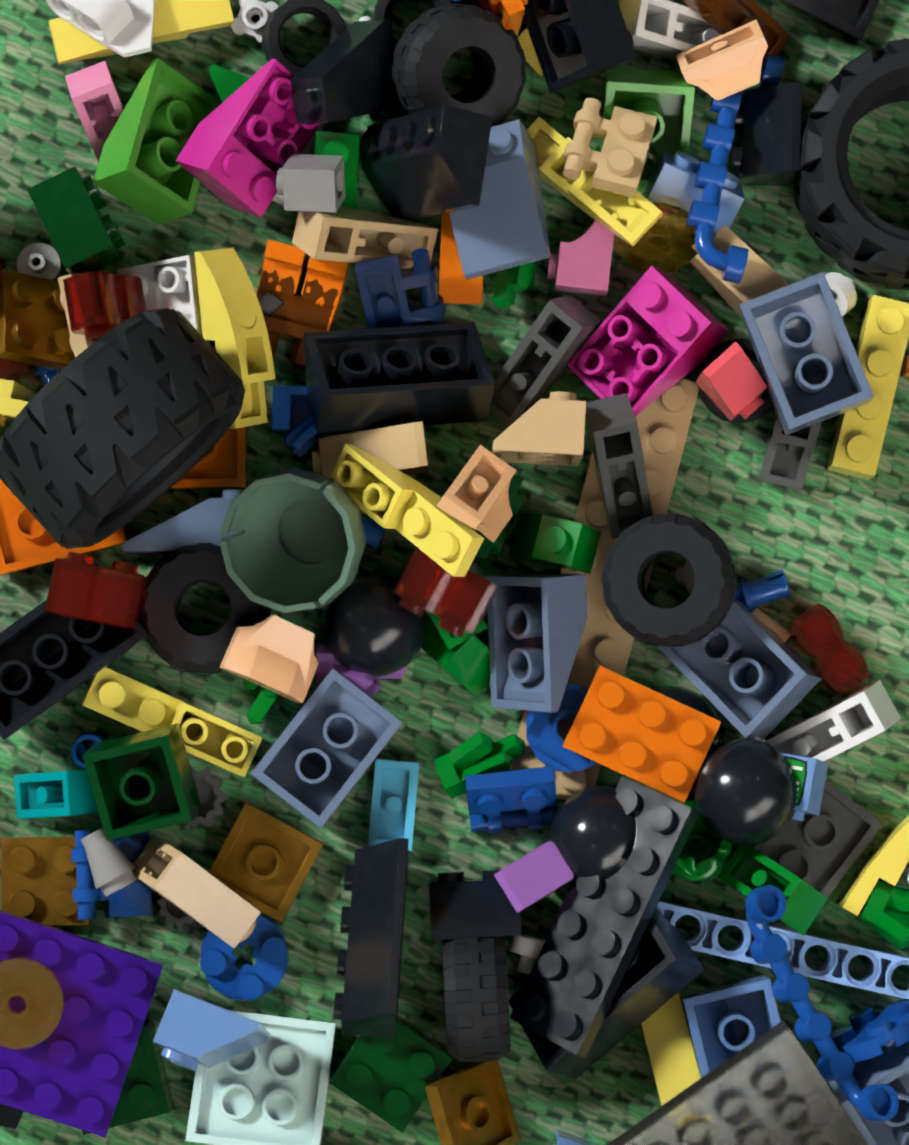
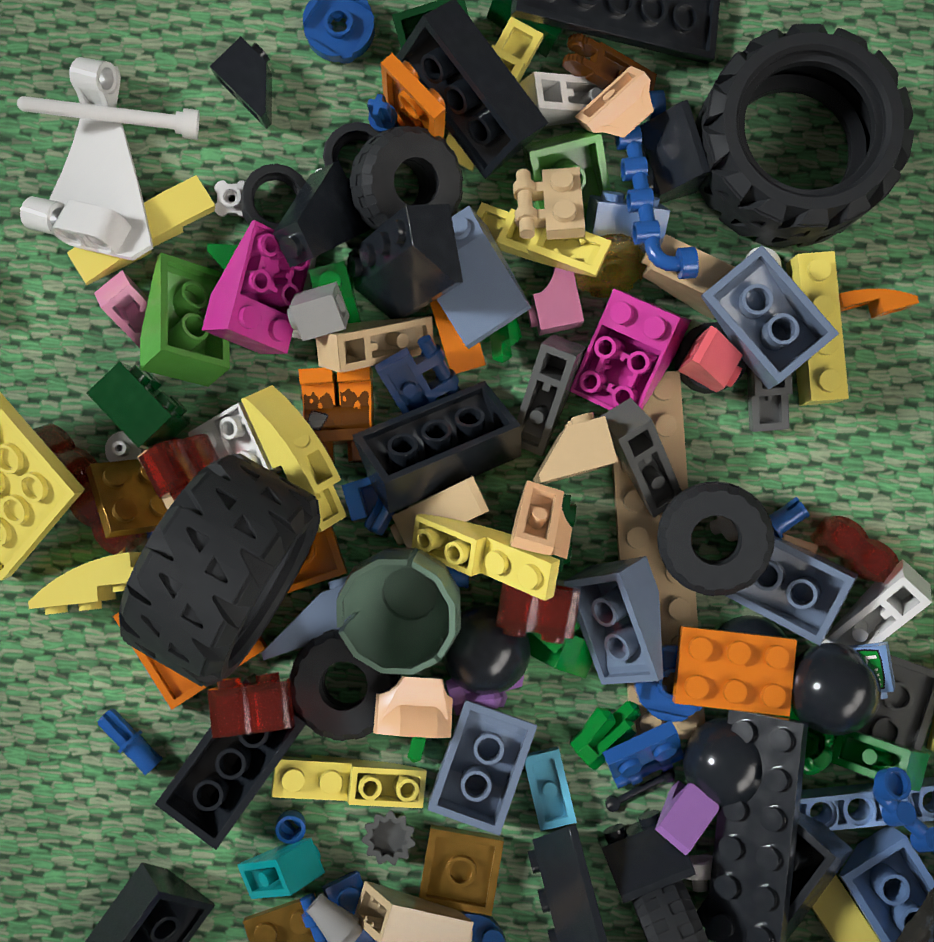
camera: 20 degrees left, 0 degrees up
(142, 782) = (341, 848): dark green brick -> none
(461, 847) = (613, 803): none -> black hinge
(555, 542) = (608, 536): green slope -> none

